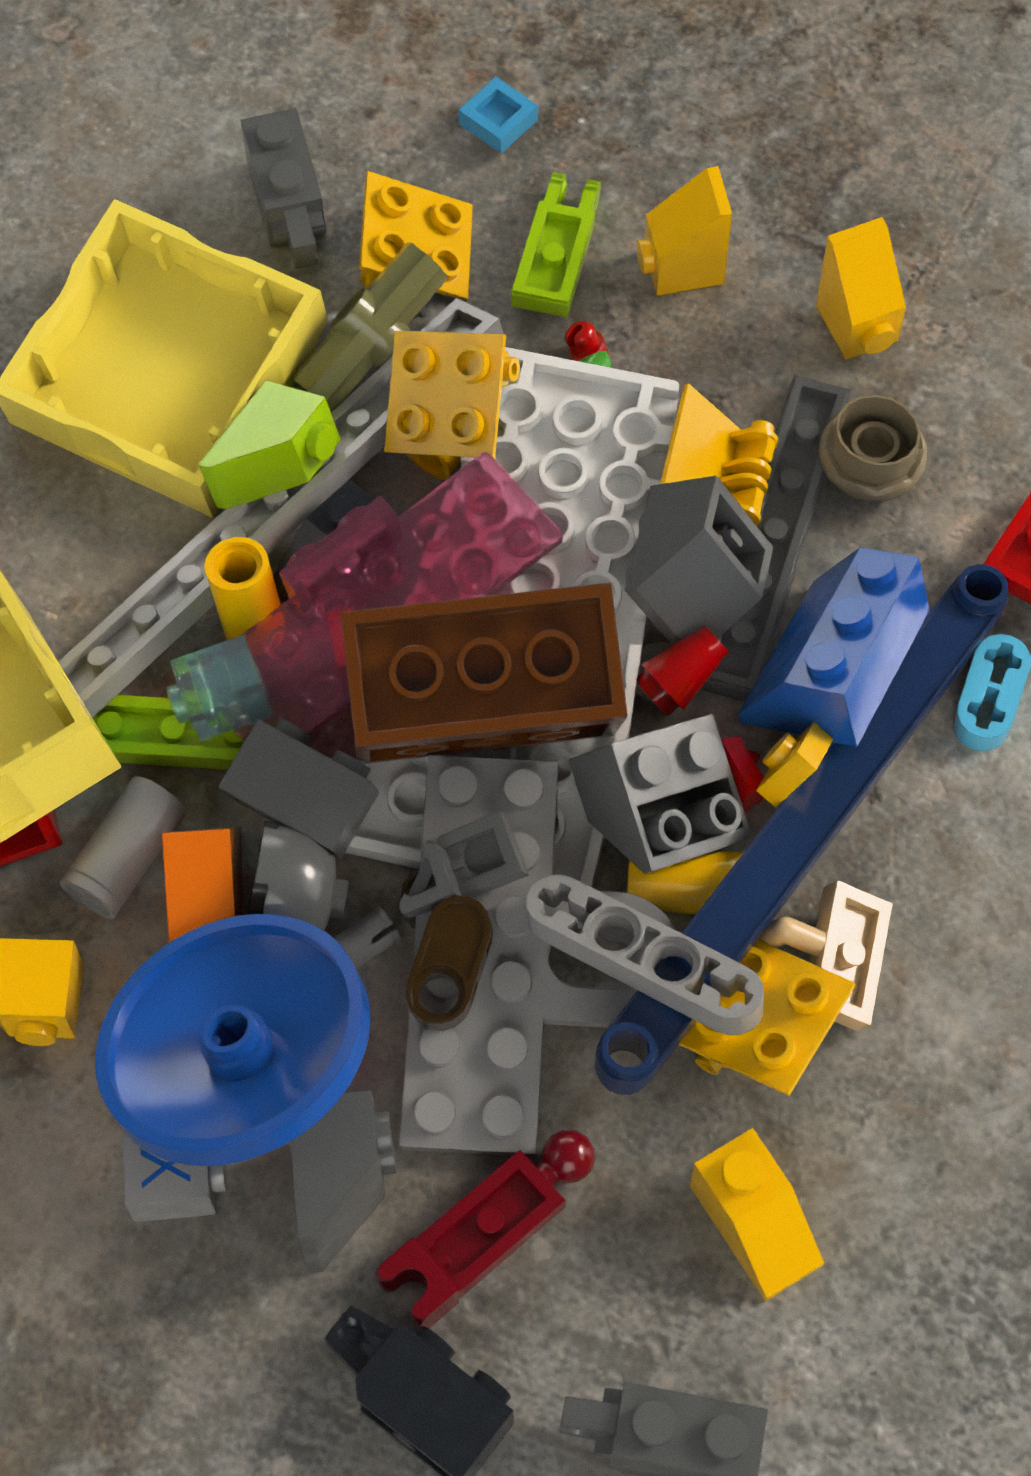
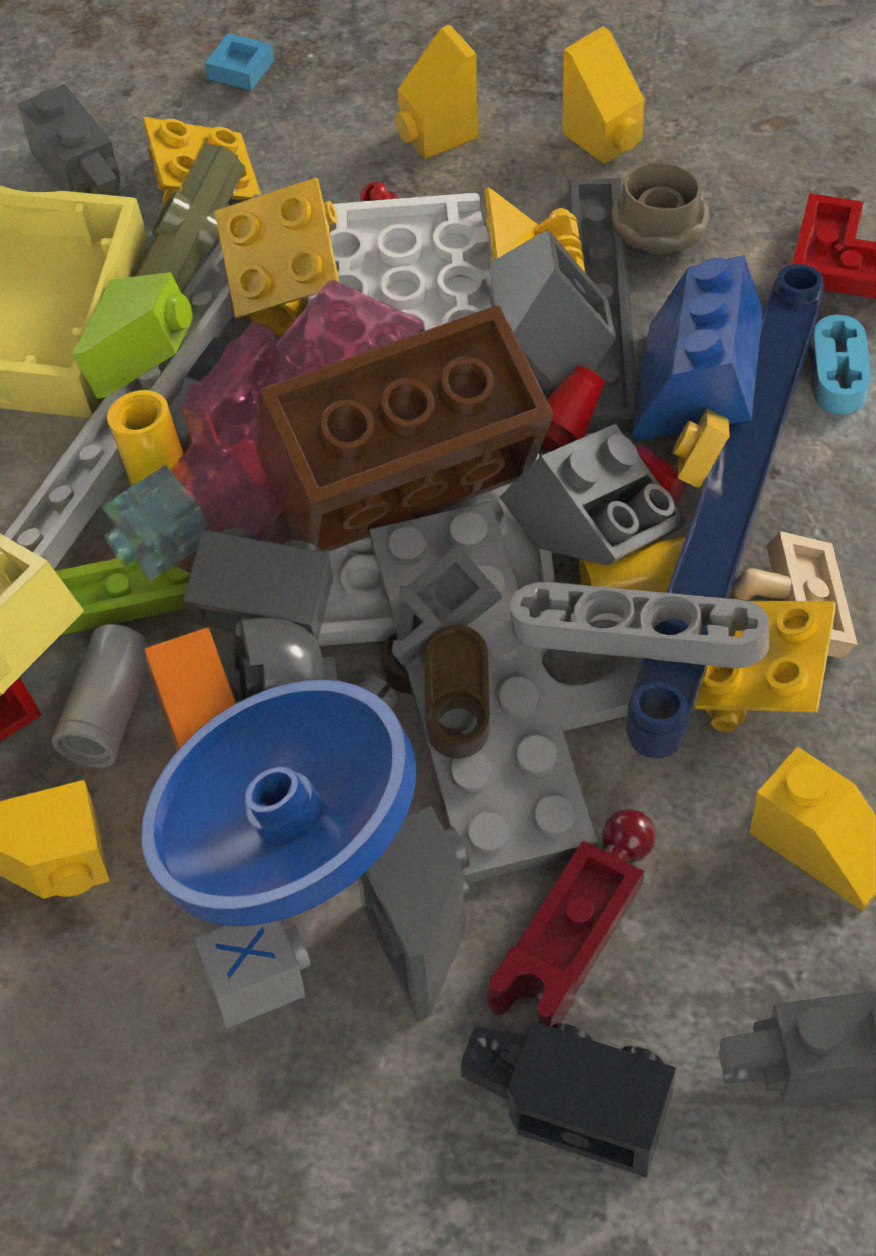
camera: 15 degrees left, 10 degrees down
(555, 249) = (327, 141): lime hinge -> none

